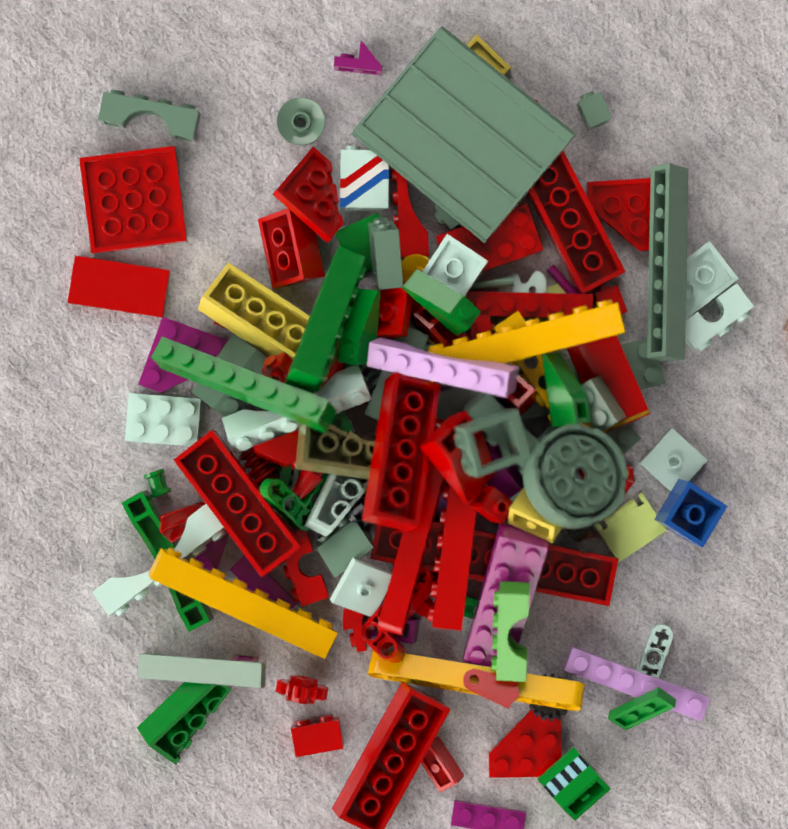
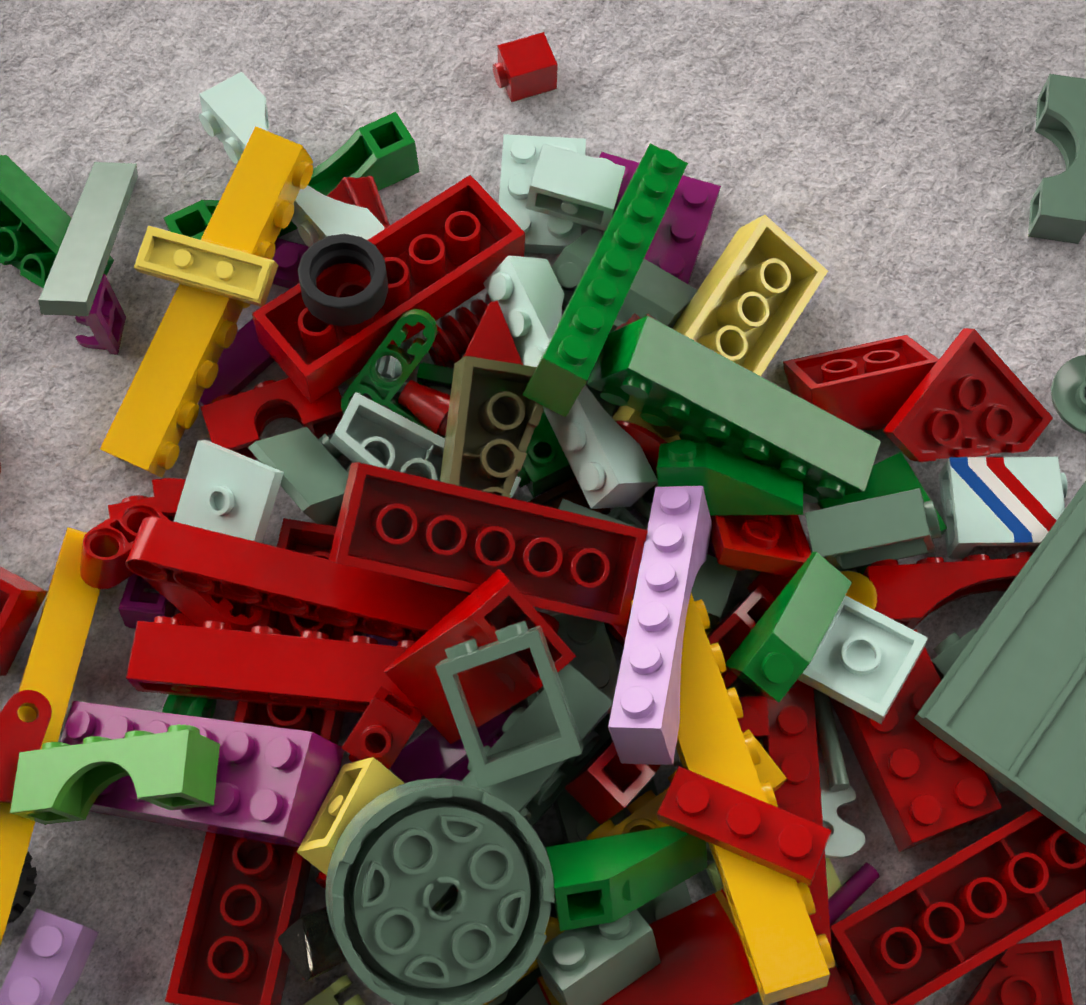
camera: 85 degrees right, 20 degrees down
(80, 427) = (526, 67): none -> red brick
(118, 286) = (766, 125): red tile -> none
(133, 199) = (918, 140): red plate -> none
(157, 483) = (429, 182): green bush -> none
(170, 400) = (575, 186): none -> light aqua brick
(228, 523) = (340, 250): none -> black tyre
(230, 603) = (206, 266): none -> light yellow tile
(302, 689) = (44, 409): red gear -> none
(548, 336) = (744, 825): none -> red plate

